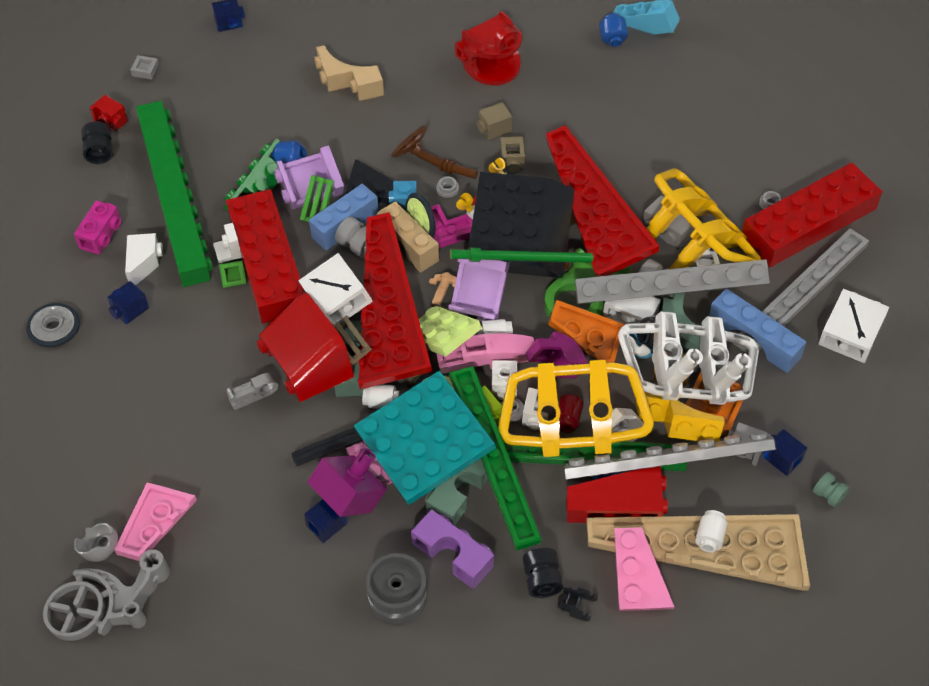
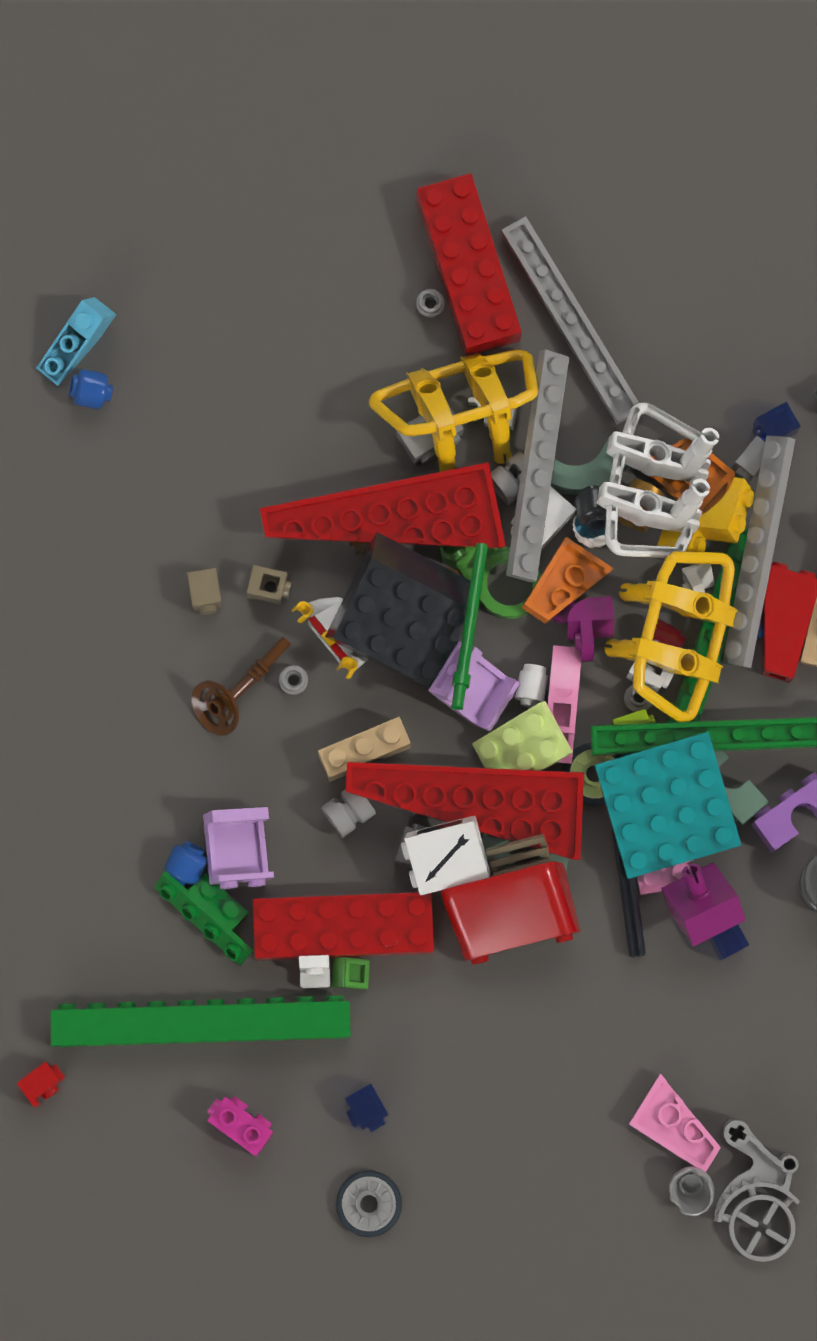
camera: 80 degrees left, 25 degrees up
(97, 142) = (92, 1107): black wheel -> none
(142, 256) = (298, 1078): white slope -> none
(252, 390) = (534, 982): light grey piece -> none
(309, 196) = (293, 857): bright green tile -> none
(337, 75) = (58, 775): tan arch -> none
(358, 204) = (310, 818): medium blue arch -> none
(372, 179) = (256, 775): black wing -> none
(379, 395) = (590, 838): white brick -> none
(401, 191) = (302, 737): dark azure brick -> none
(421, 212) = (348, 725): wheel -> none
(445, 279) = (434, 720): light nougat piece -> none
(452, 230) = (362, 706): dark pink plate -> none
(491, 51) = (93, 556): red animal -> none
(500, 373) = (602, 695): white brick -> none
(779, 344) = (599, 401): medium blue arch -> none
(853, 325) = (635, 283): white brick -> none

